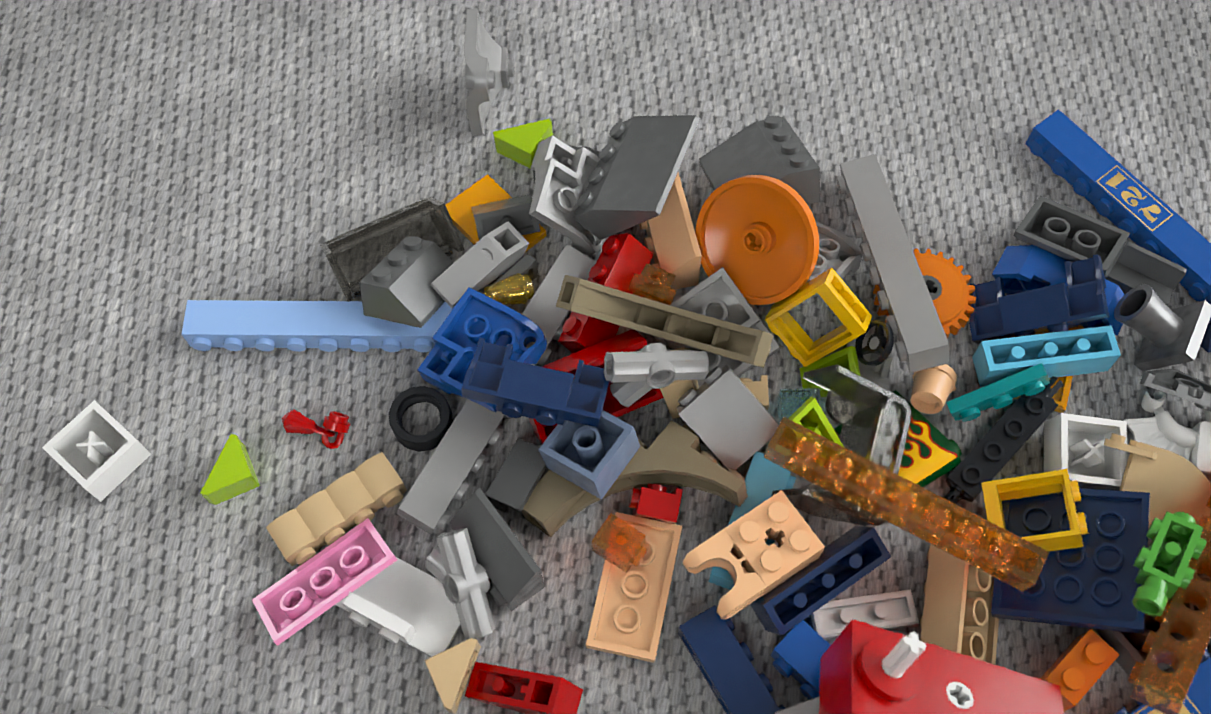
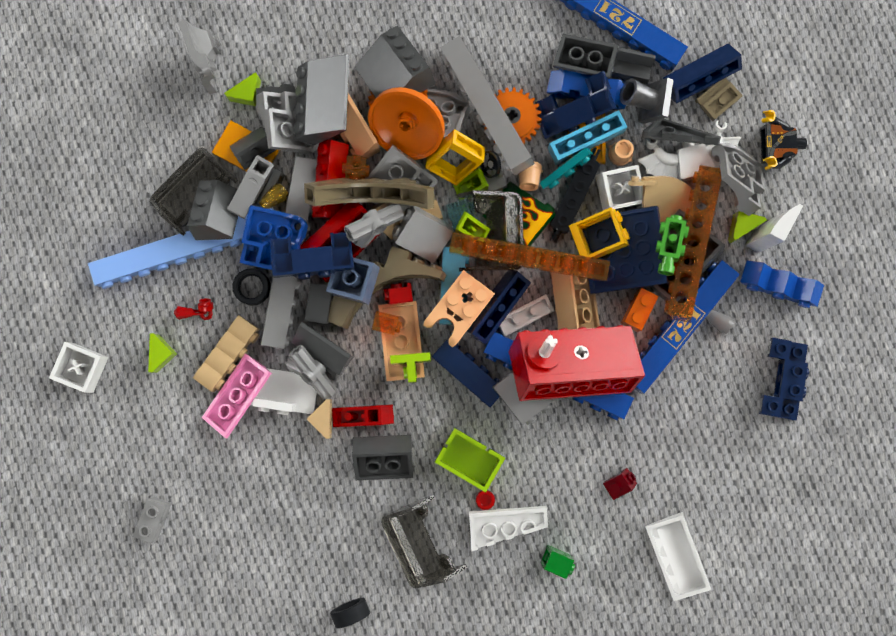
camera: 25 degrees left, 20 degrees up
(637, 617) = (411, 360): none -> lime bracket
(1097, 398) = (621, 152): none -> light nougat piece

